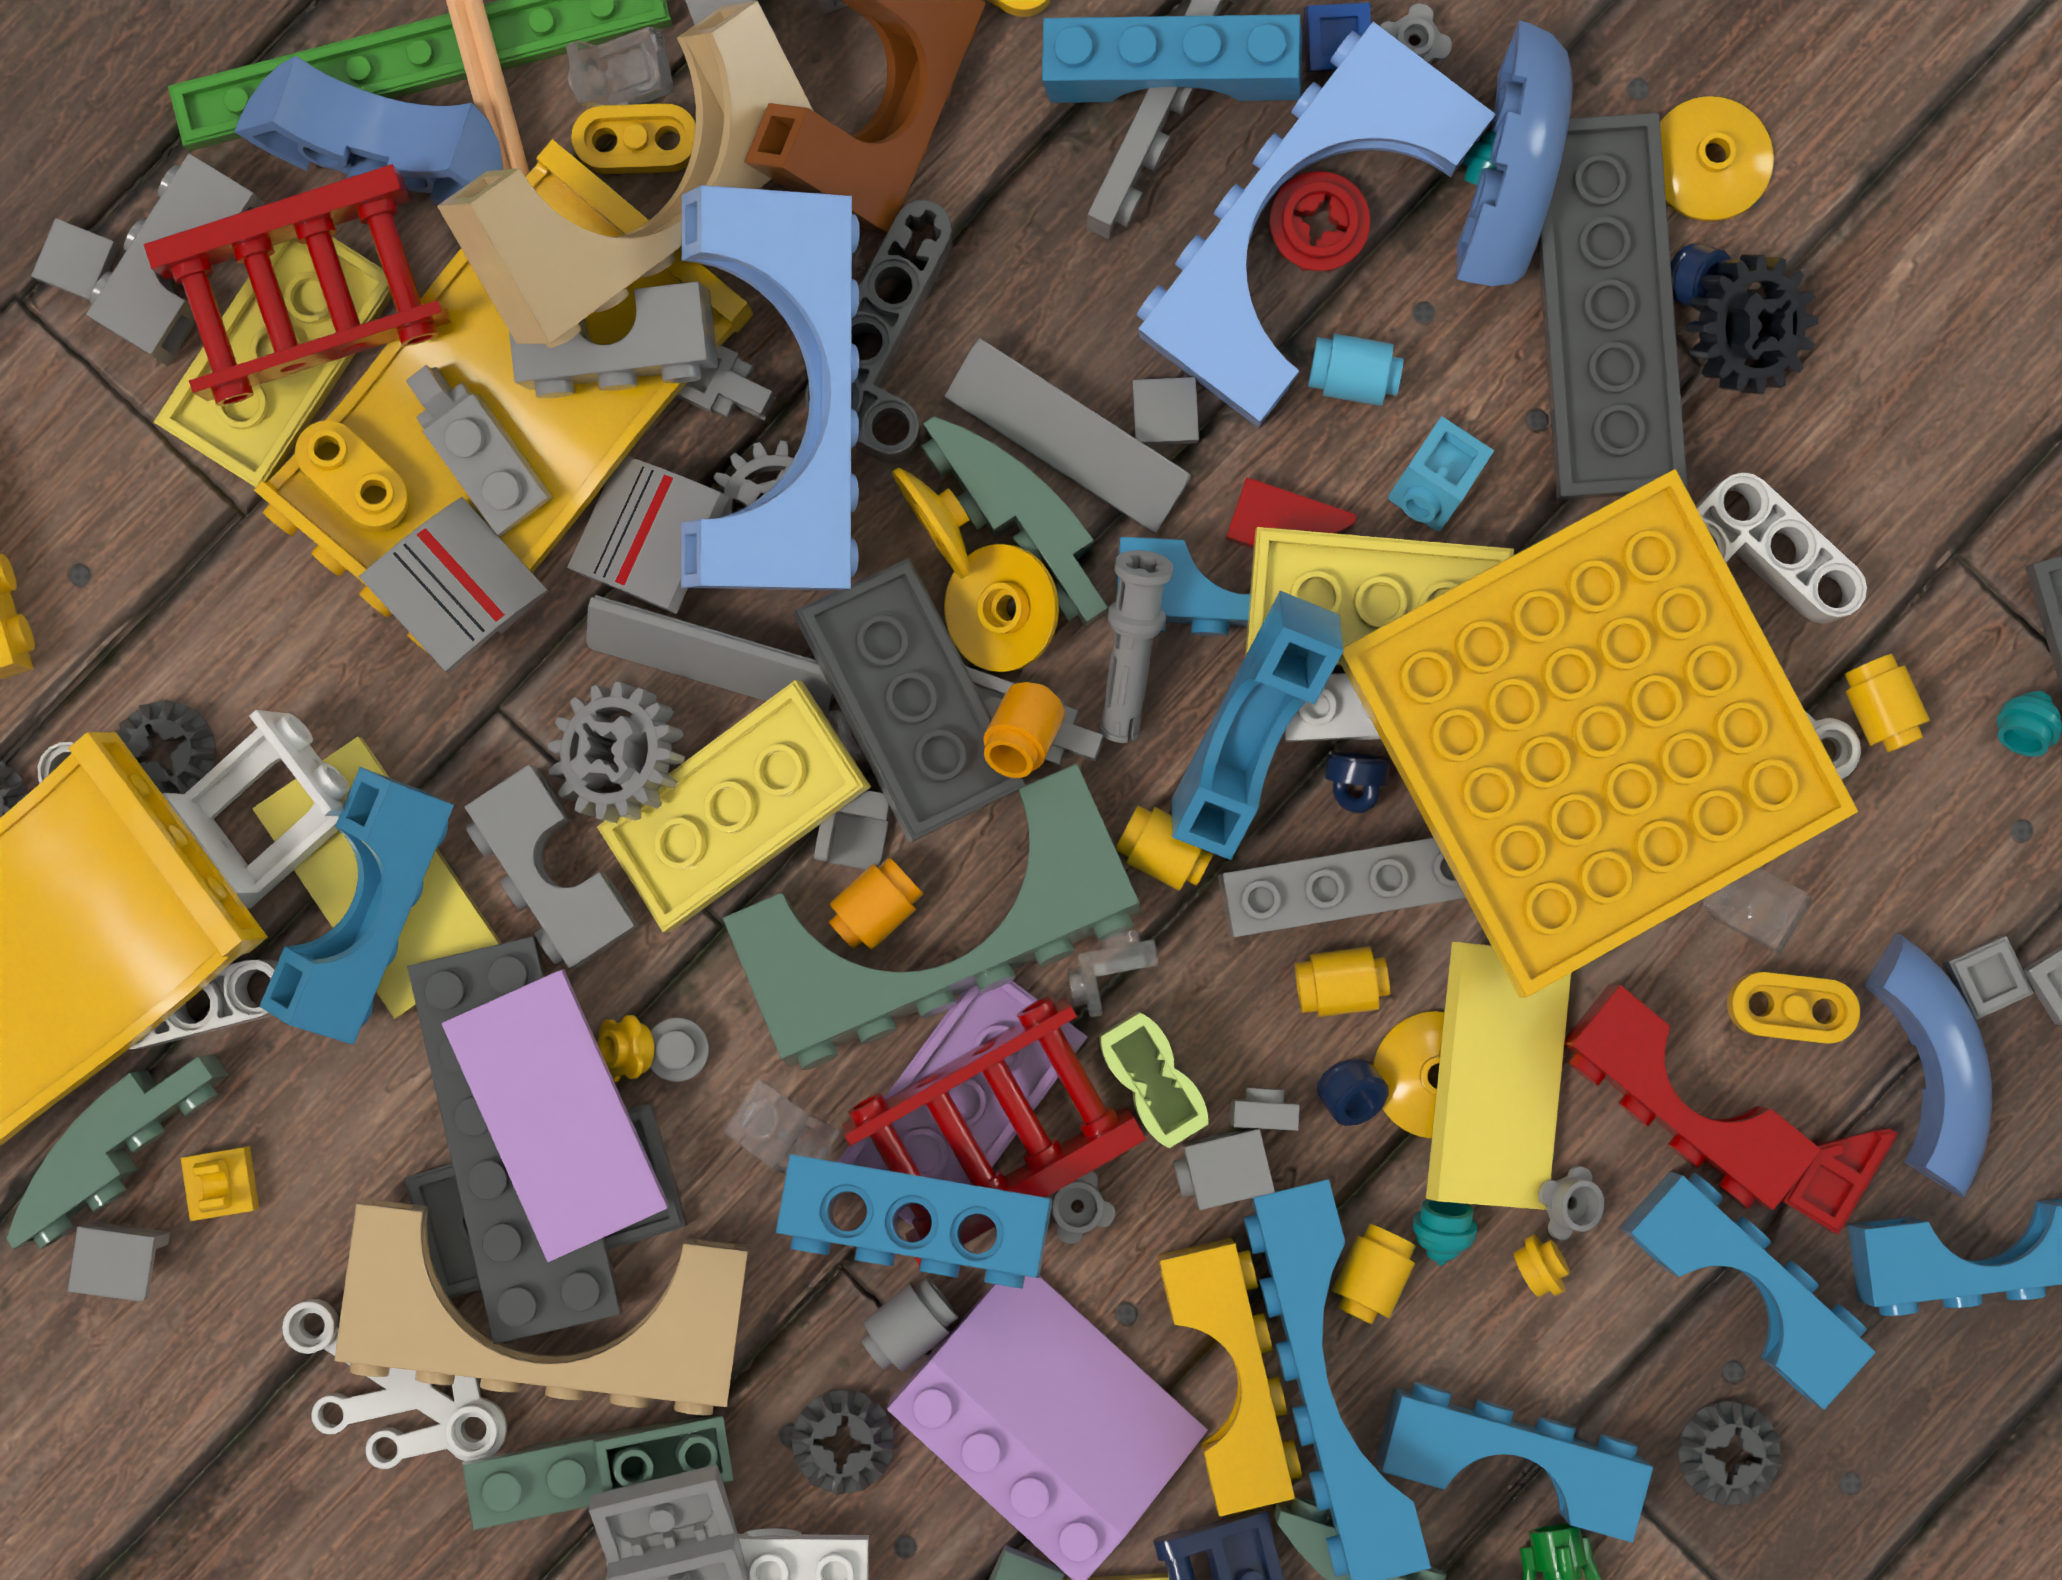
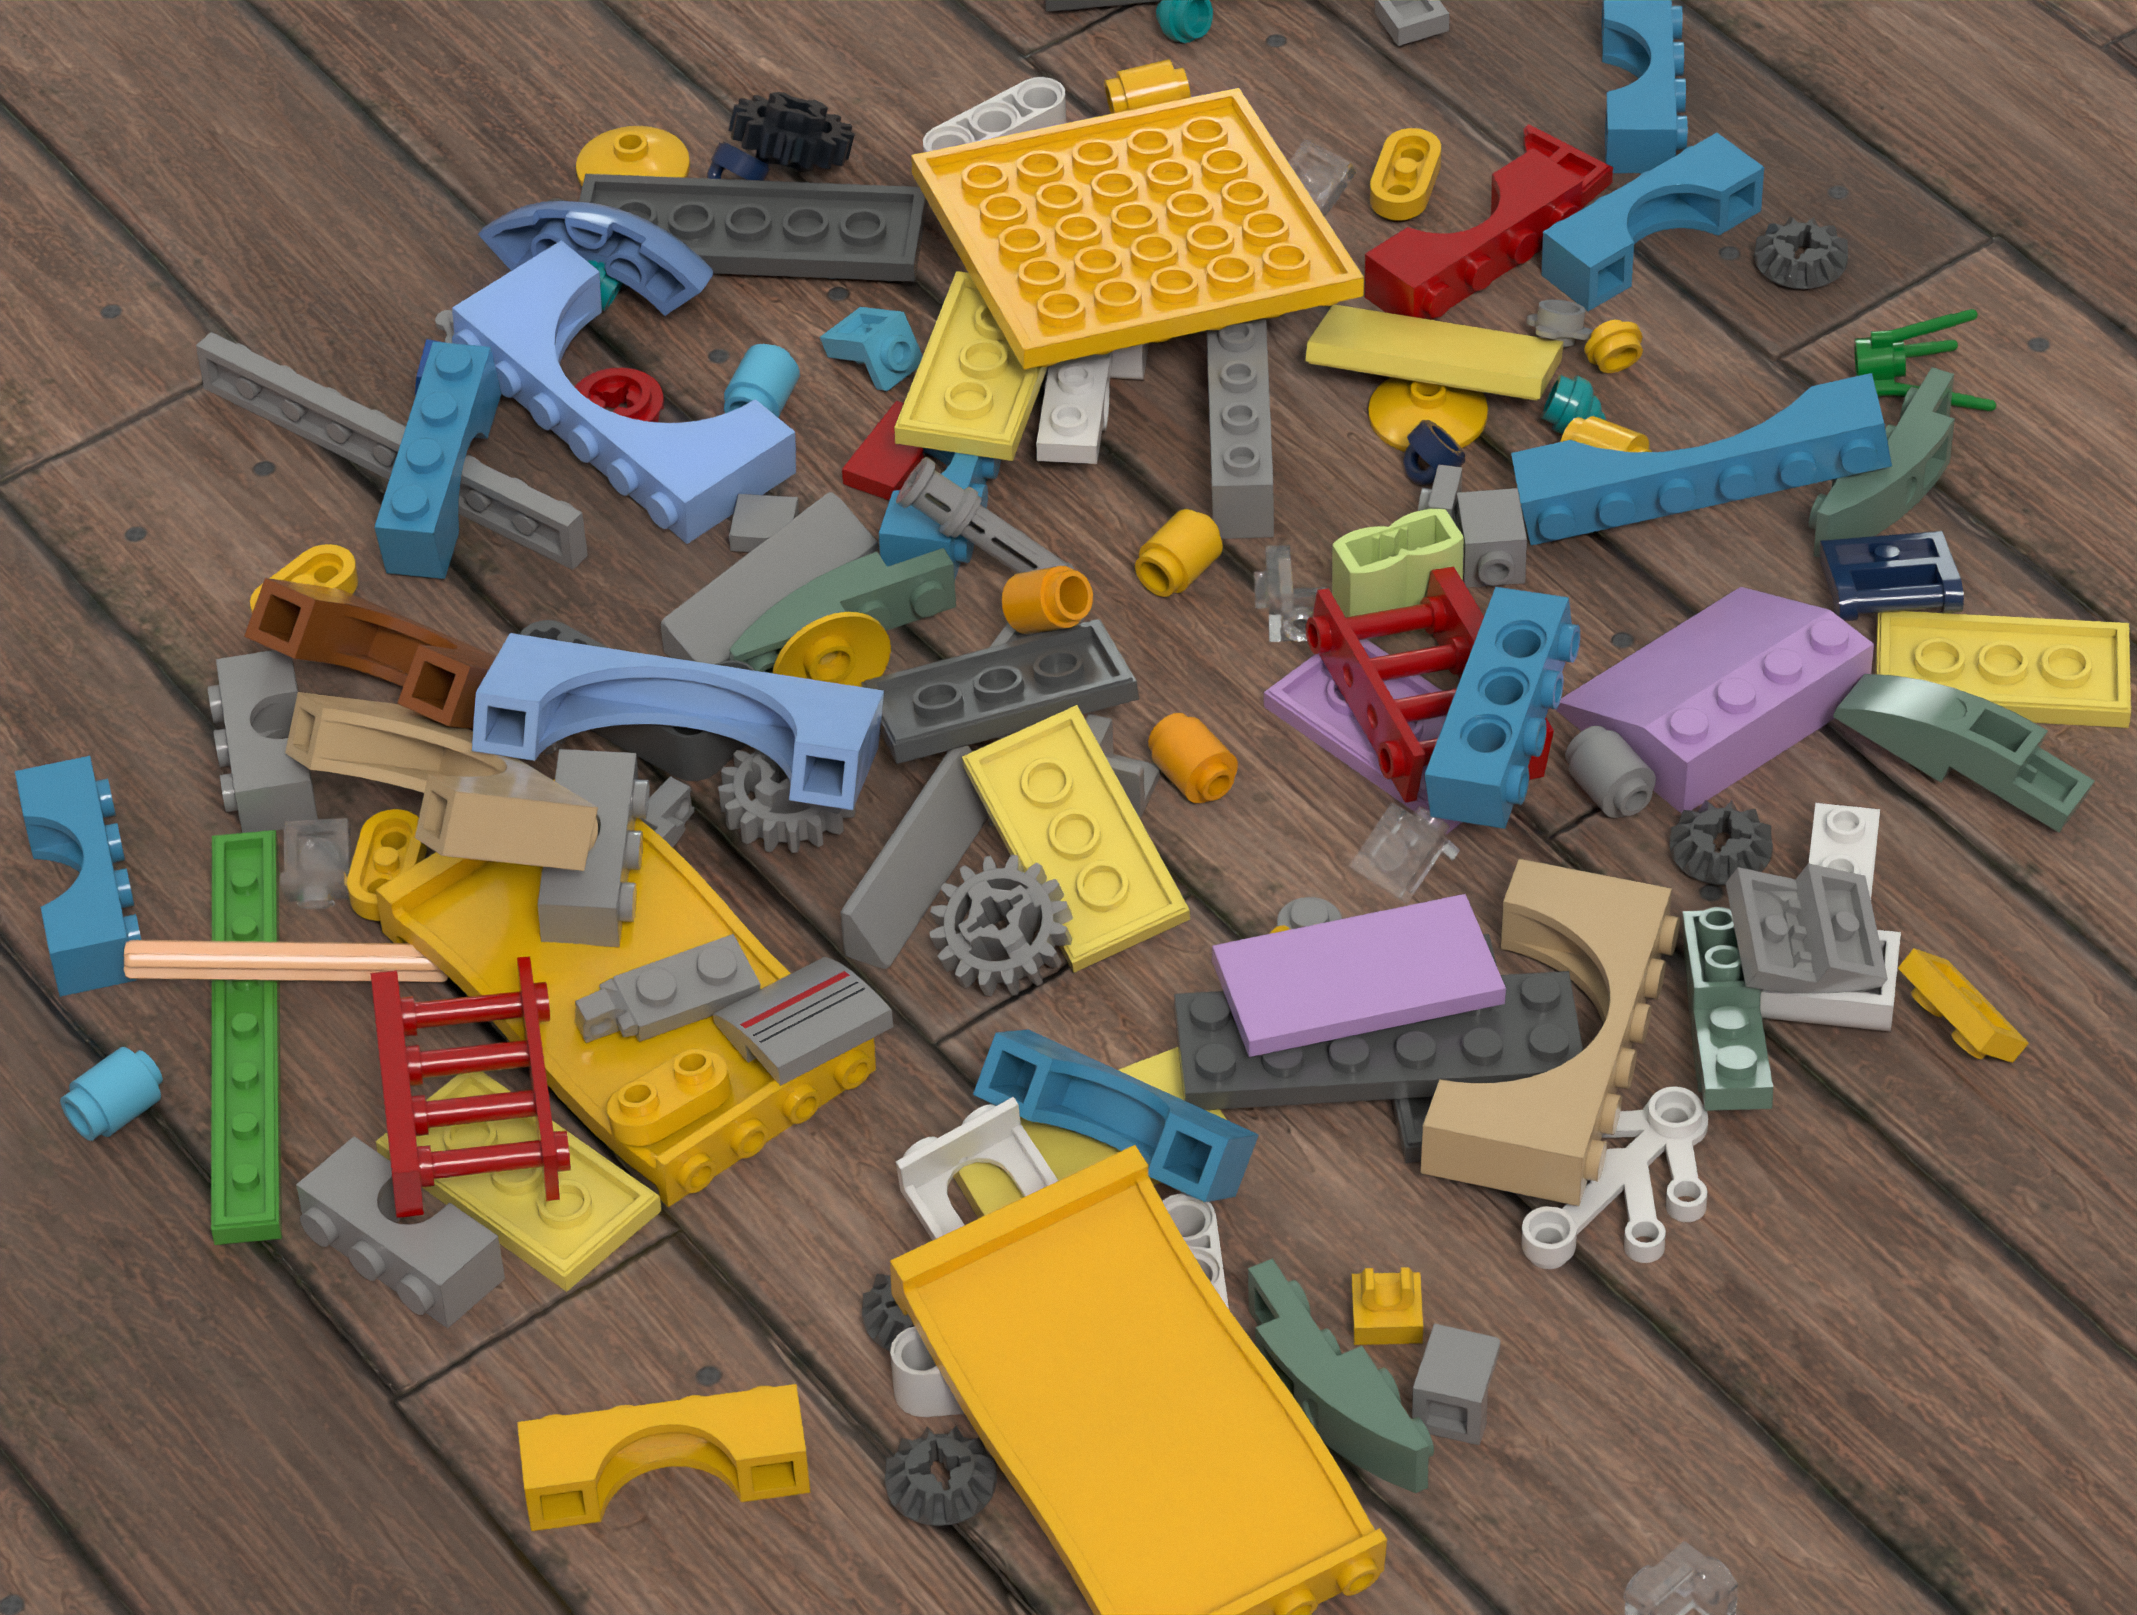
camera: 75 degrees left, 40 degrees down
(74, 259) = (371, 1333): light grey tile -> none
(326, 122) = (328, 1054): medium blue brick -> none
(515, 825) = (1090, 1015): light grey arch -> none
(637, 531) = (789, 877): light grey slope -> none
(823, 1001) = (1273, 792): sand green arch -> none
(978, 608) = (932, 608): yellow dish -> none
(1245, 1454) = (1754, 546): yellow arch -> none
(1277, 677) = (1028, 394): dark azure arch -> none
(1341, 982) = (1329, 448): yellow brick -> none
(1357, 769) = (1134, 419): dark blue tile -> none
(1594, 1484) = (1809, 338): dark azure arch -> none
(1953, 1060) = (1503, 83): medium blue brick -> none
(1988, 976) = (1400, 65): light grey tile -> none

